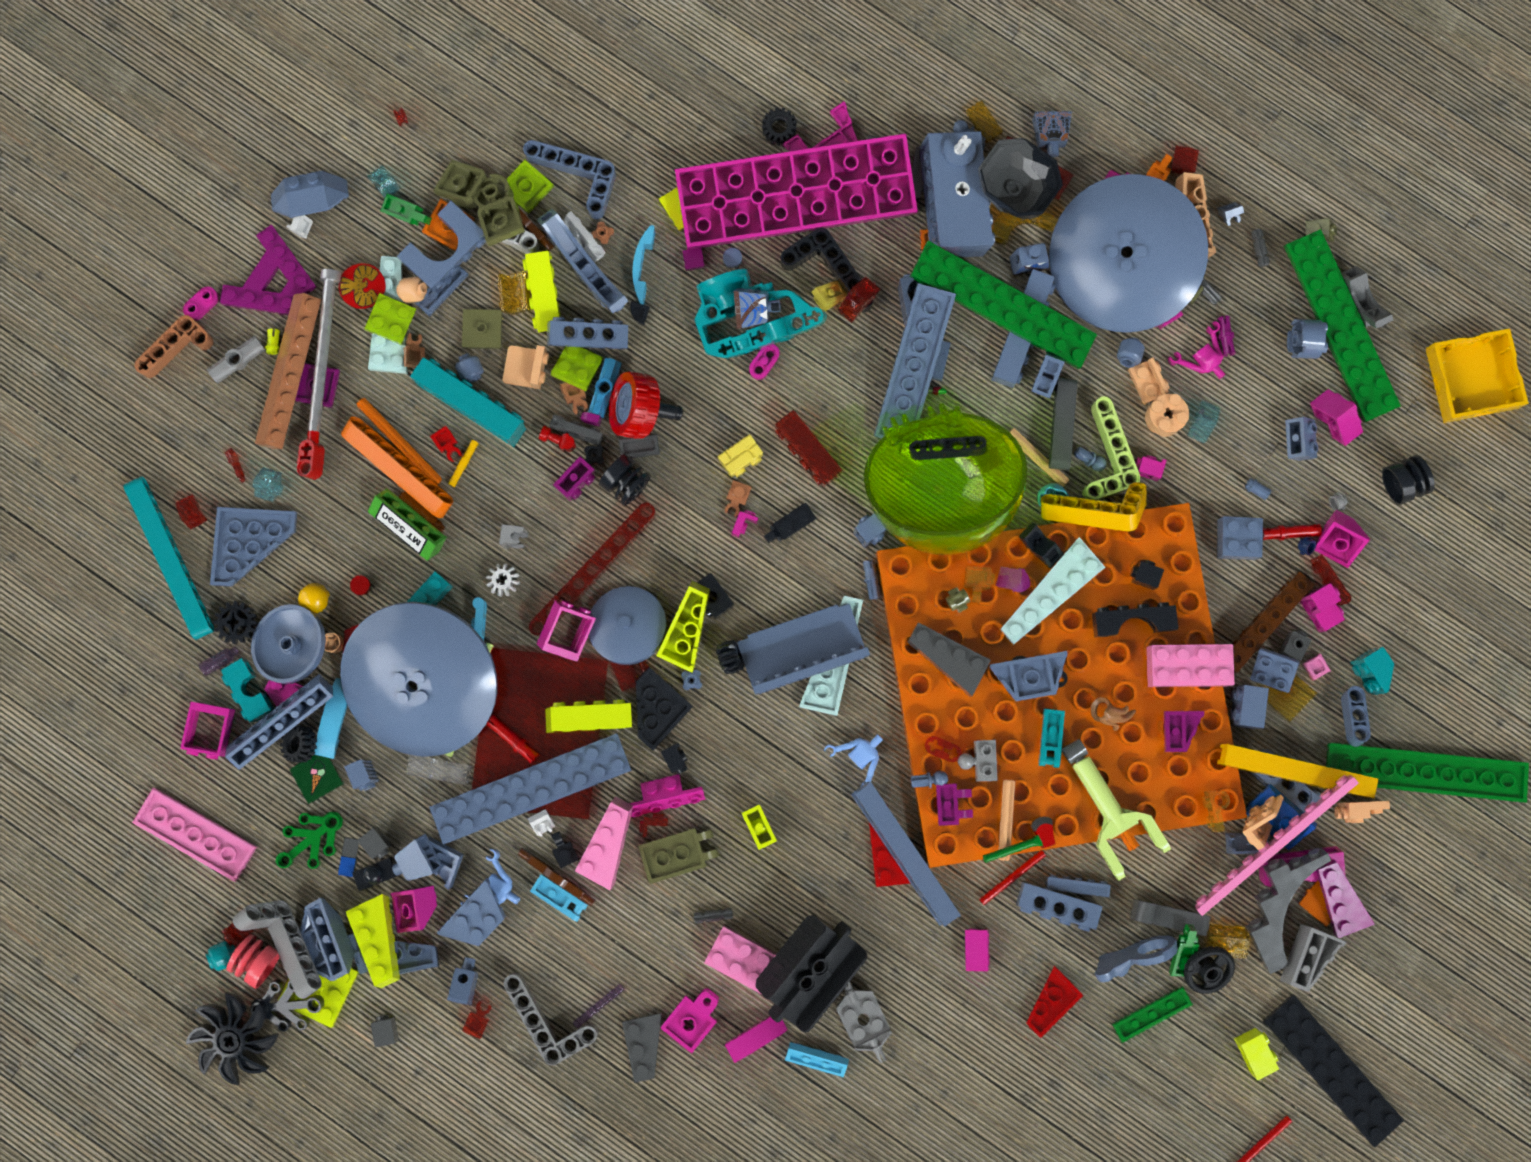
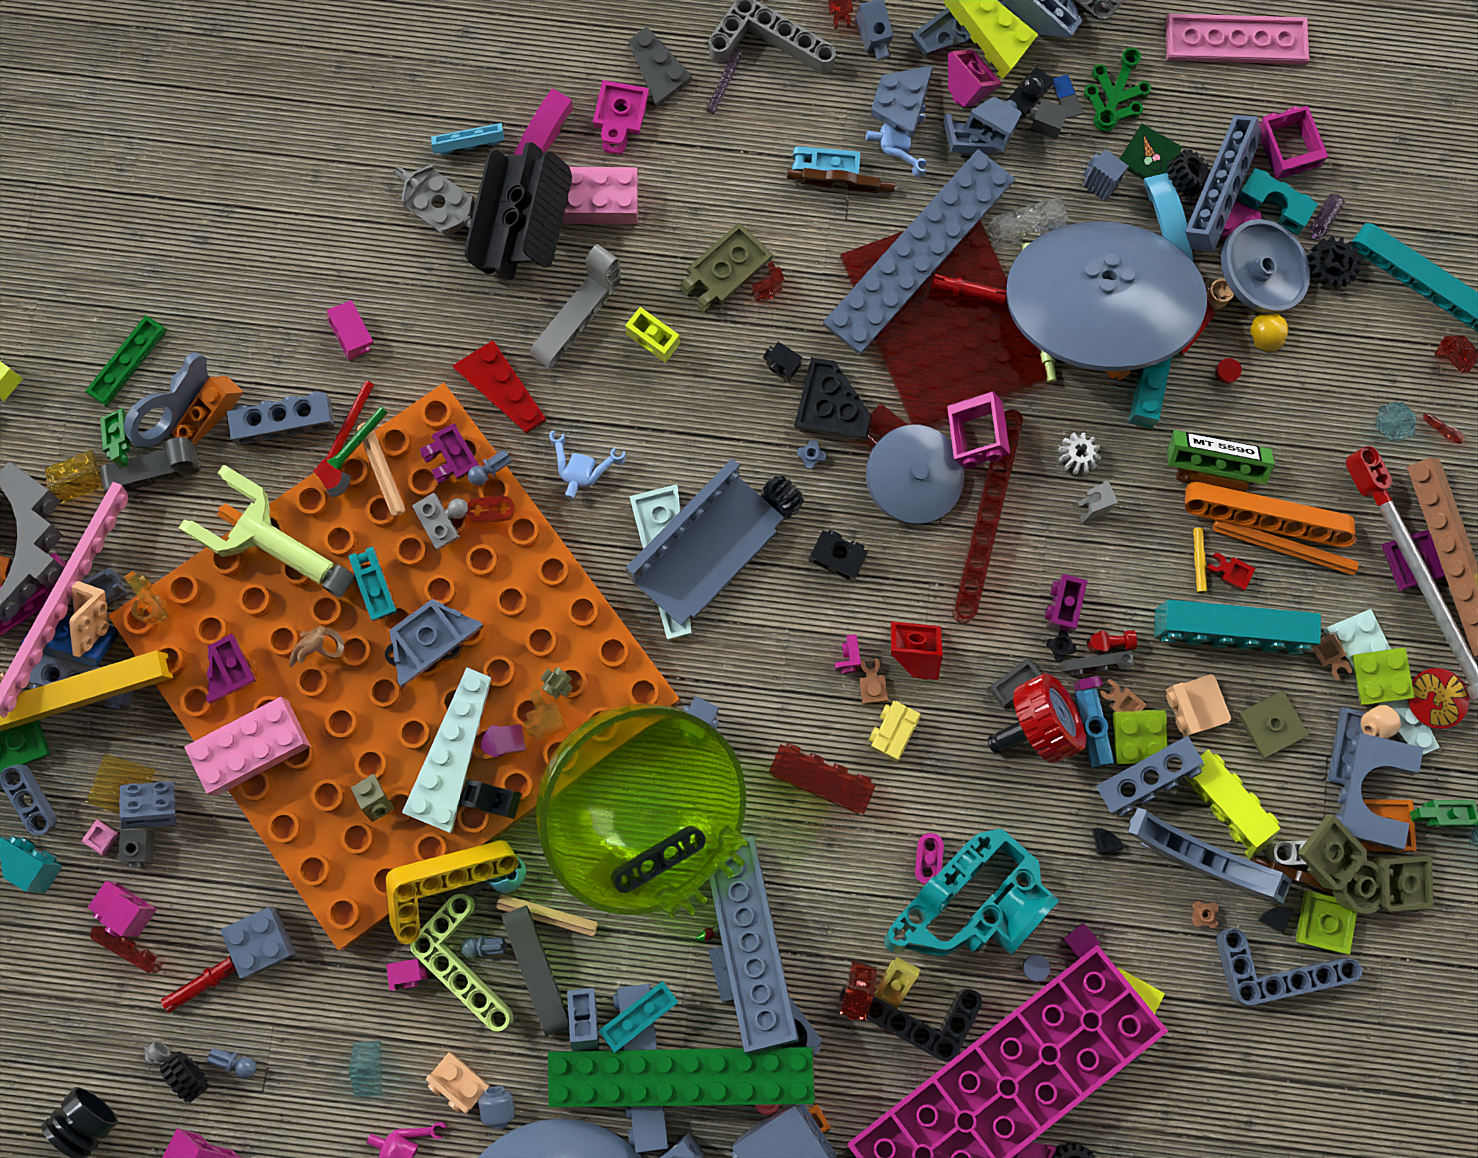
camera: 150 degrees right, 5 degrees down
(246, 539) = (1379, 353): sand blue plate -> none
(469, 368) = (1259, 668): sand blue head -> none
(479, 621) = (1076, 393): medium azure plate -> none
(513, 293) = (1265, 782): clear yellow bracket -> none
(541, 822) = (887, 225): white tile -> none
(557, 205) = (1276, 918): none -> black tile
(564, 853) = (846, 210): black plate -> none
(583, 236) = (1223, 894): white hinge -> none
(588, 717) = (900, 350): neon yellow wedge -> none
(604, 851) = (805, 230): bright pink wedge -> none
(628, 482) = (1009, 630): black wheel -> none
(645, 242) = (1149, 931): medium azure slope -> none
(665, 794) = (775, 319): dark pink bracket -> none
(684, 634) = (846, 495): neon yellow wedge -> none
(694, 504) = (917, 648): none -> red slope
(713, 915) = (653, 225): dark grey axle -> none
(753, 307) = (978, 905): torso -> none
(790, 523) = (795, 685): black hinge -> none
(805, 874) = (602, 281): none -> light grey beam
(871, 579) = (668, 668): sand blue axle -> none
(905, 854) = (478, 385): sand blue tile -> none
(954, 660) = (532, 612): dark grey wedge -> none
(1011, 357) = (638, 1016): none -> teal plate
(1053, 1003) = (240, 317): red wing -> none
(1077, 886) = (270, 451): sand blue piece -> none
(1109, 941) = (208, 408): none -> orange slope
(1121, 587) = (372, 798): none -> olive bracket
(1146, 574) = (348, 828): black brick -> none
(1160, 618) = (366, 748): black arch -> none
(1164, 425) = (399, 1050): light nougat brick -> none
(1209, 969) = (83, 437): black wheel -> none
(1248, 707) = (159, 743): sand blue brick -> none
(1257, 488) = (263, 1017): sand blue pin -> none
(1269, 618) = (181, 860): reddish brown brick -> none
(1293, 472) = (244, 1067): none -> sand blue axle
(1301, 438) = (235, 1107): sand blue brick -> none
(1306, 546) = (172, 976): dark blue plate -> none
(1326, 475) = (184, 1077): none -> black tyre
(1341, 539) = (133, 1007): dark pink slope -> none

